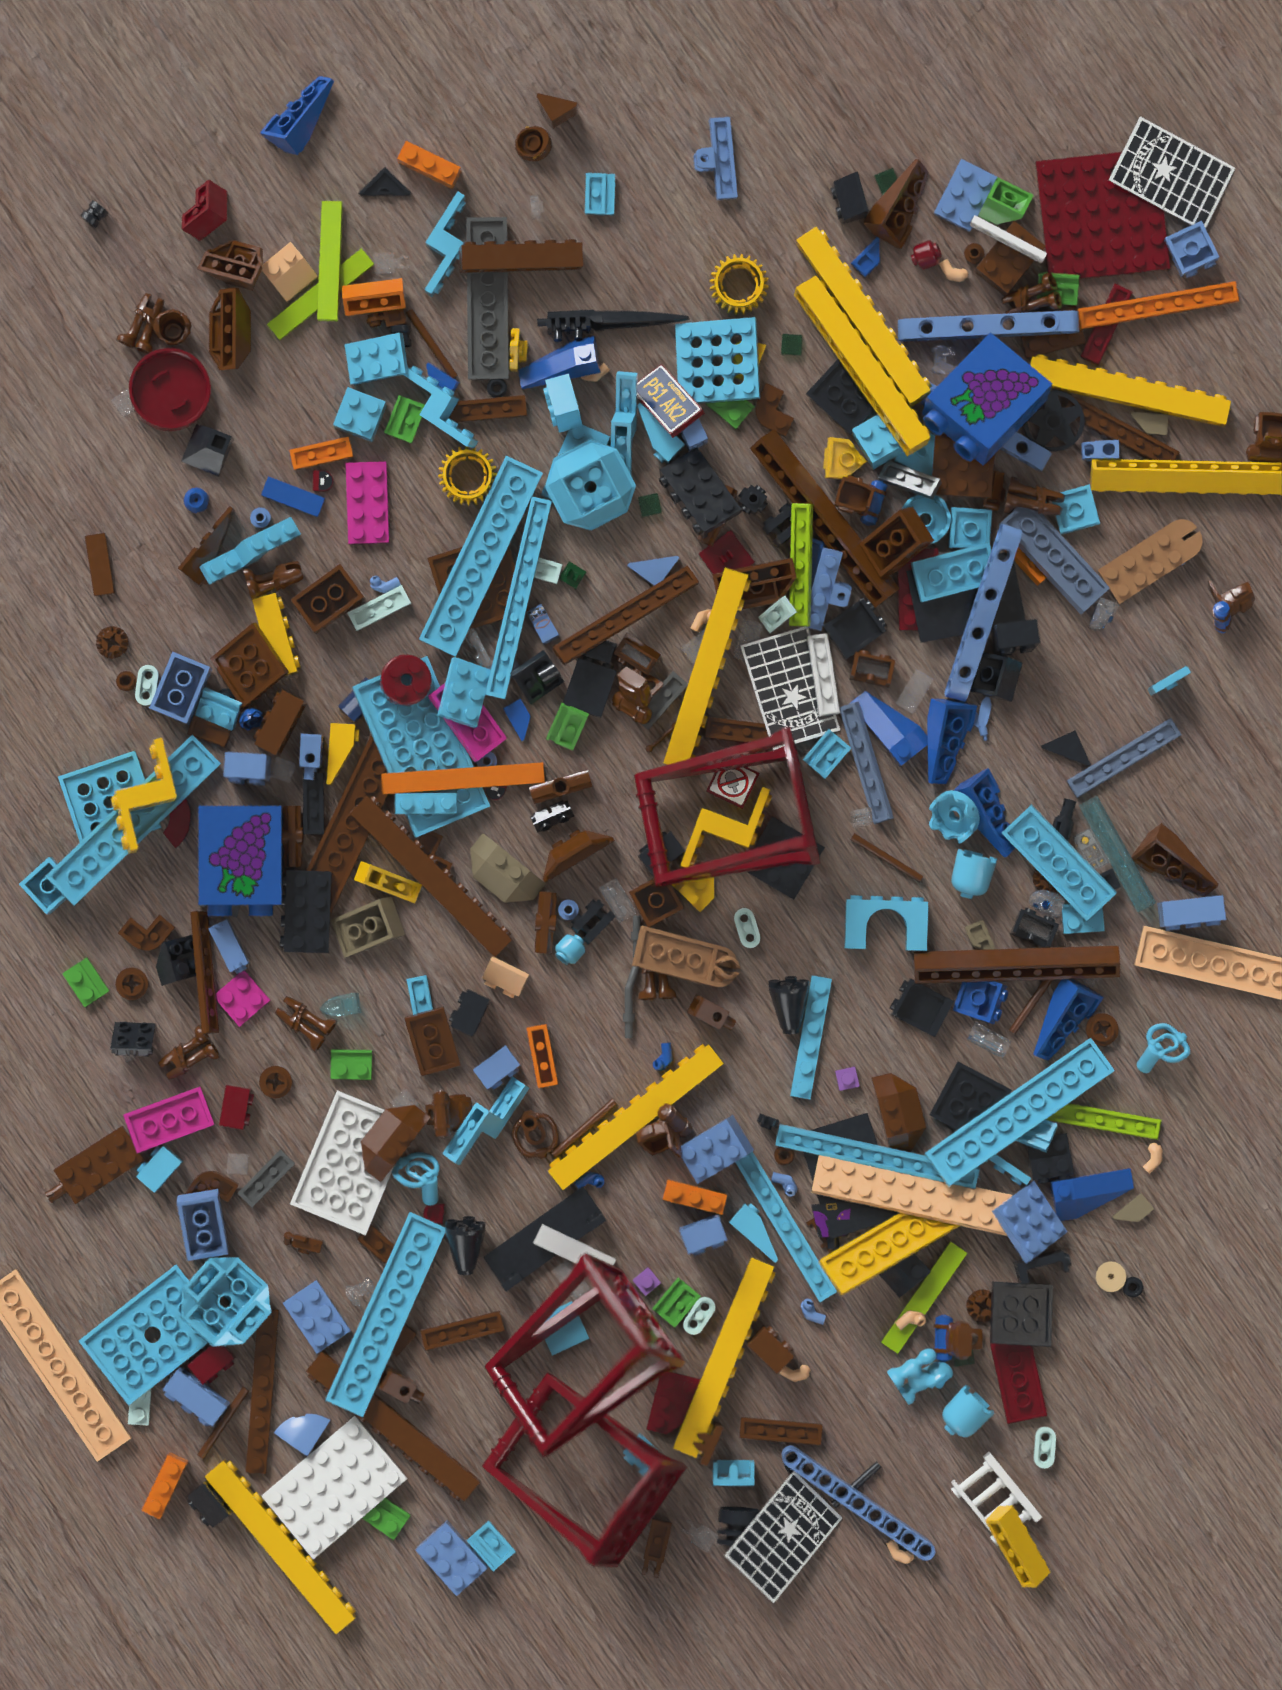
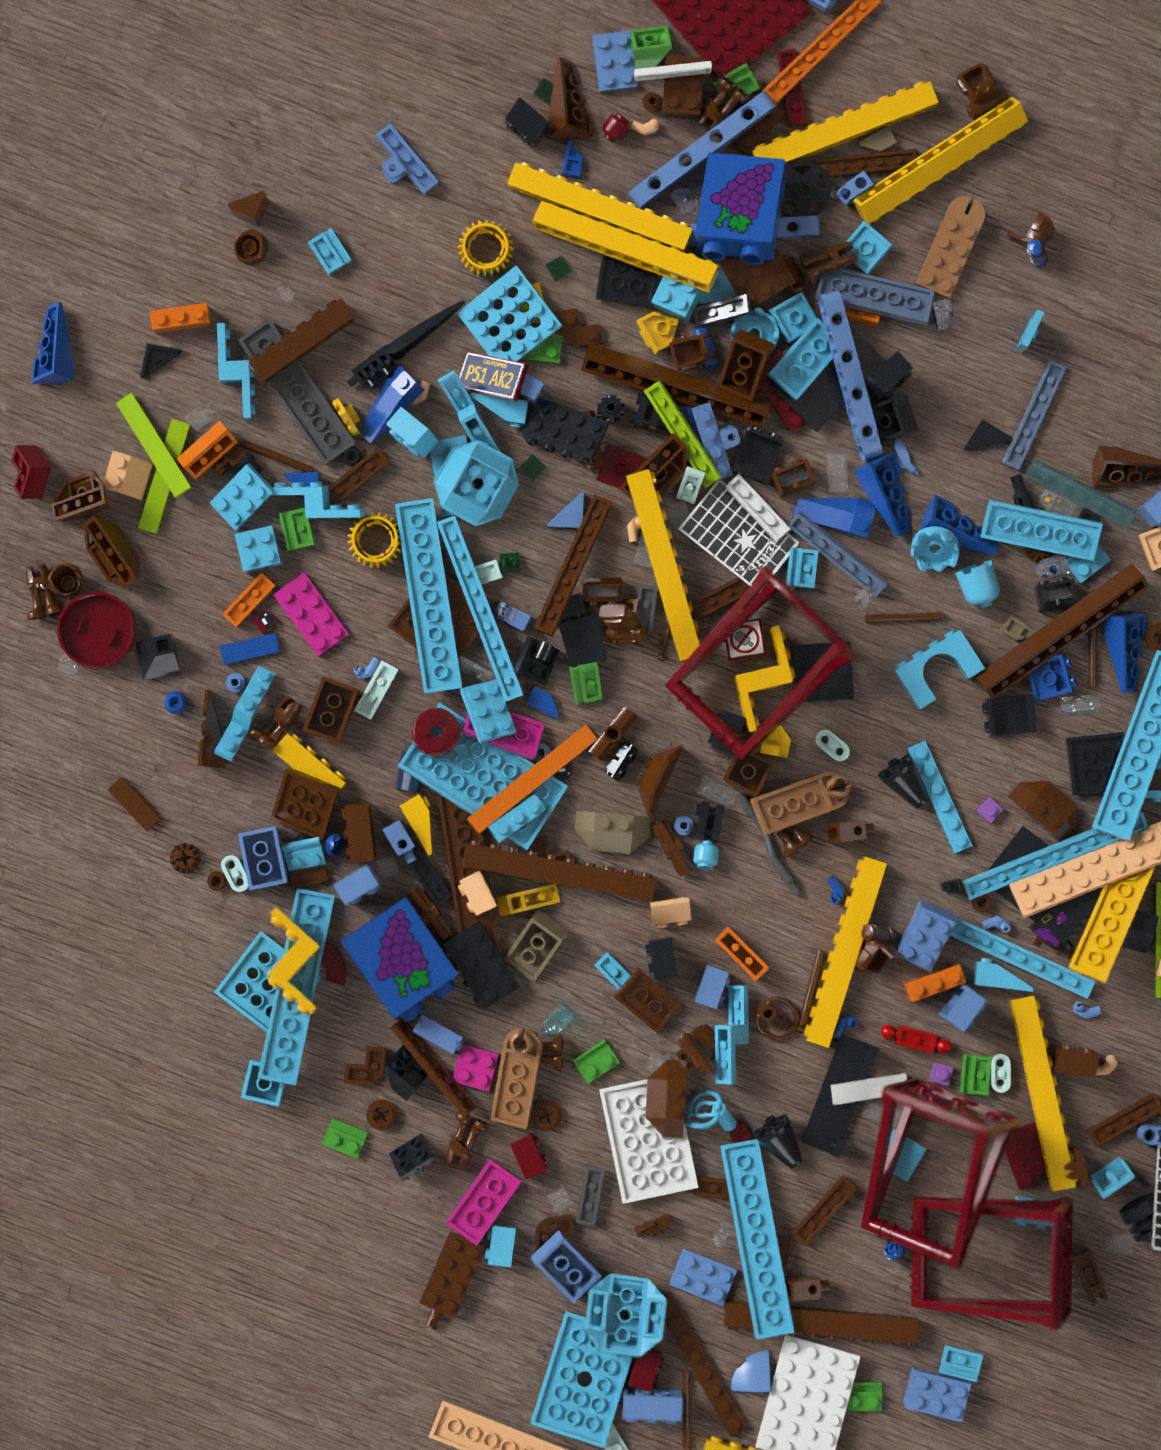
camera: 35 degrees left, 0 degrees up
(271, 1031) = (517, 1078): none -> medium nougat plate
(347, 845) = (478, 893): none -> light nougat slope
(499, 1407) = (894, 1251): none -> blue plate
(645, 1235) = (916, 1039): none -> red plate

